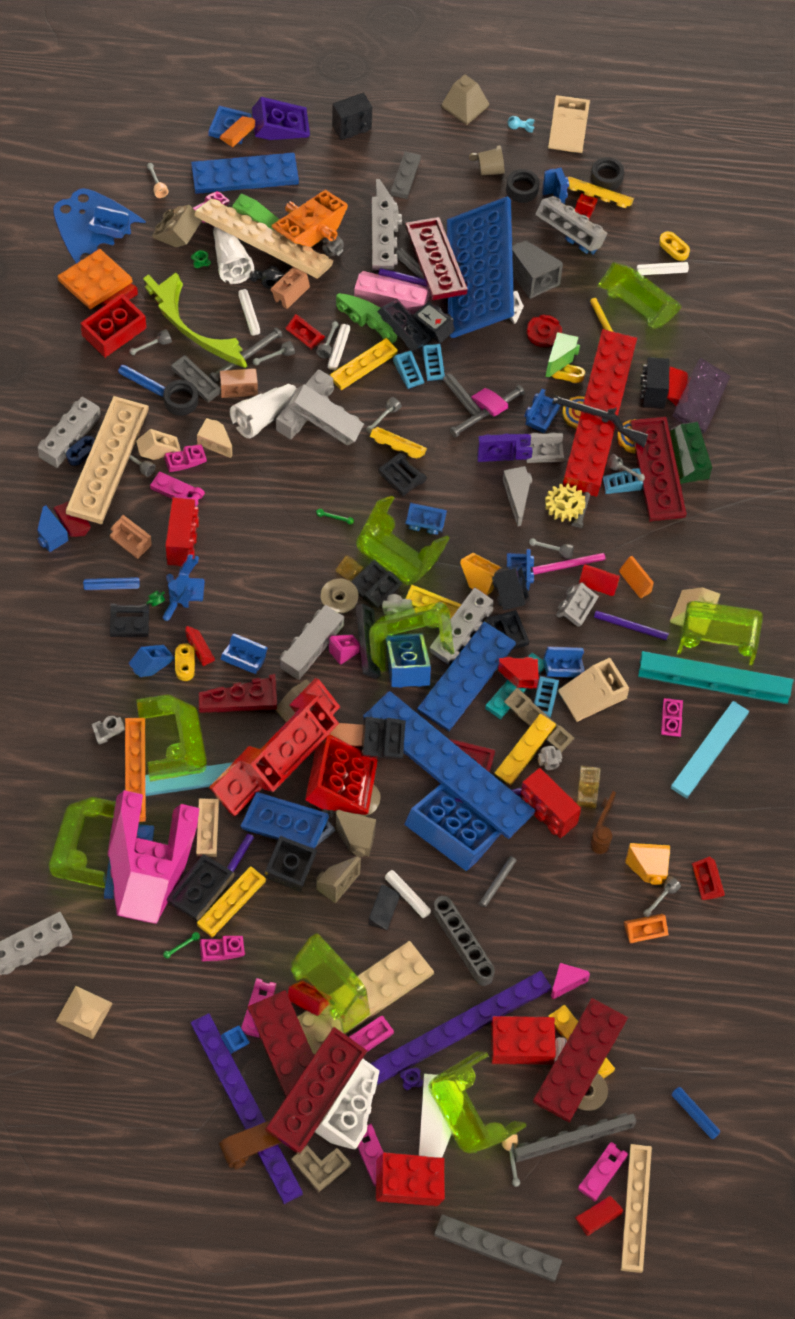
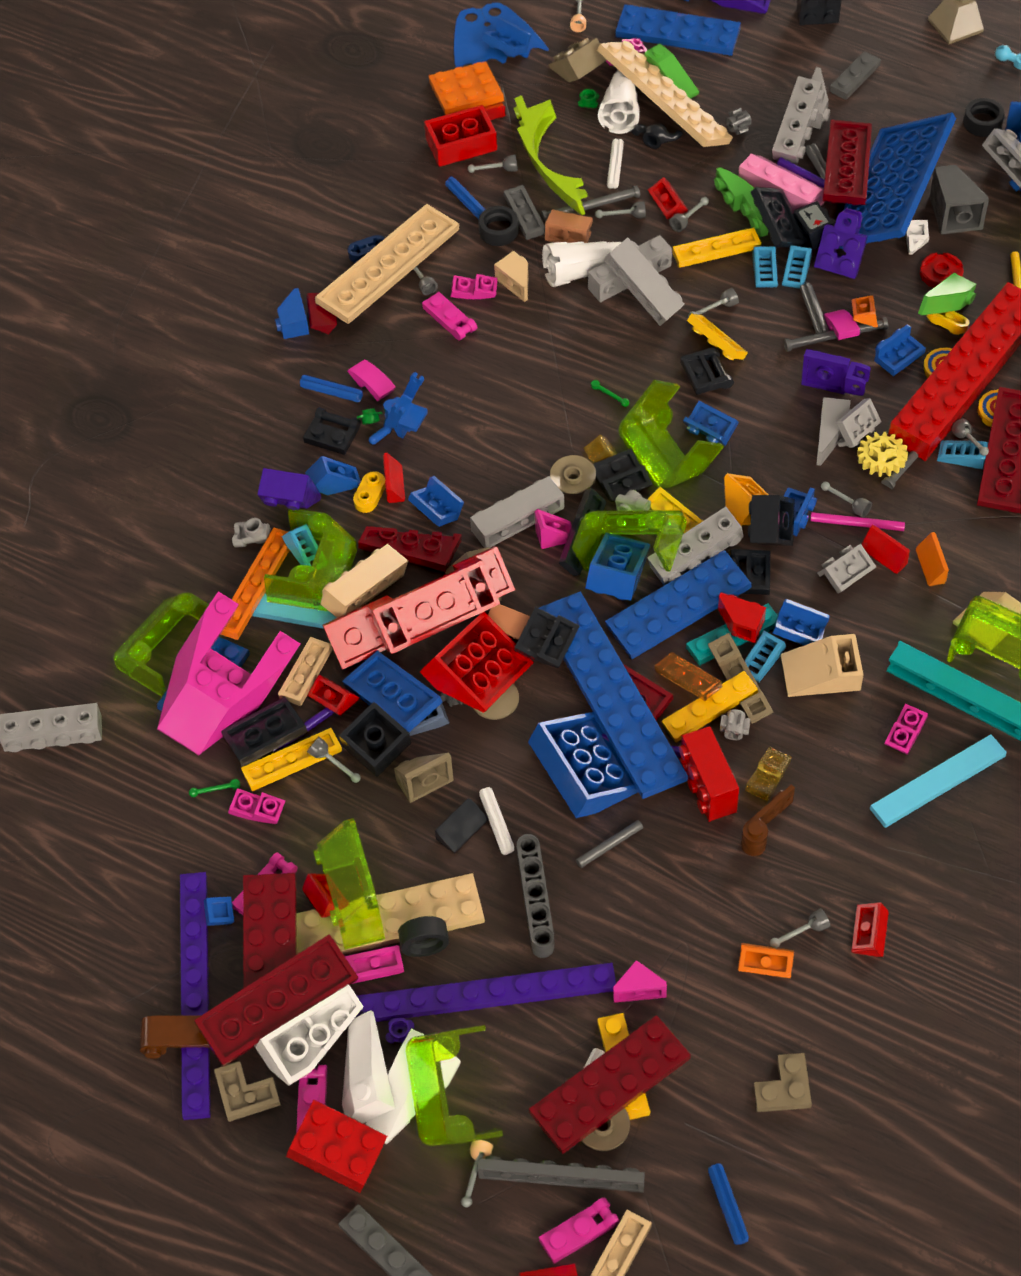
camera: 30 degrees right, 5 degrees down
(69, 431) = (368, 221): light grey brick -> none
(84, 1012) = (72, 822): tan slope -> none
(129, 686) = (287, 489): none -> dark purple slope
(130, 537) = (375, 346): nougat hinge -> none
(139, 563) = (372, 378): none -> dark pink slope
(149, 724) = (294, 545): none -> slope
(156, 444) = (446, 262): tan slope -> none
(181, 531) = (429, 353): red brick -> none
(222, 740) = (364, 581): none -> tan brick
(238, 840) = (332, 695): none -> red slope
(252, 886) = (320, 749): none -> hinge
(290, 287) = (671, 150): nougat hinge -> none
(312, 220) = (726, 89): orange slope -> none
(338, 347) = (697, 223): white axle -> none
(356, 832) = (468, 730): dark tan slope -> none
(399, 1002) = (423, 936): none -> black tyre
(404, 1121) = (365, 1075): none -> white wedge
(464, 326) = (844, 235): none -> dark purple plate
(489, 161) = (956, 82): dark tan hat -> none
(500, 731) = (688, 676): none -> clear orange tile
(503, 385) = (864, 310): none -> orange slope
(523, 1040) = (551, 1035): red brick -> none
(538, 484) = (858, 423): none -> light grey bracket
(546, 447) = (886, 389): light grey bracket -> none
(631, 625) = (903, 611): dark purple bar -> none
(636, 436) = (998, 405): black piece -> none
(649, 861) = (801, 881): light orange slope -> none
(703, 1014) = (790, 1091): none -> dark tan plate

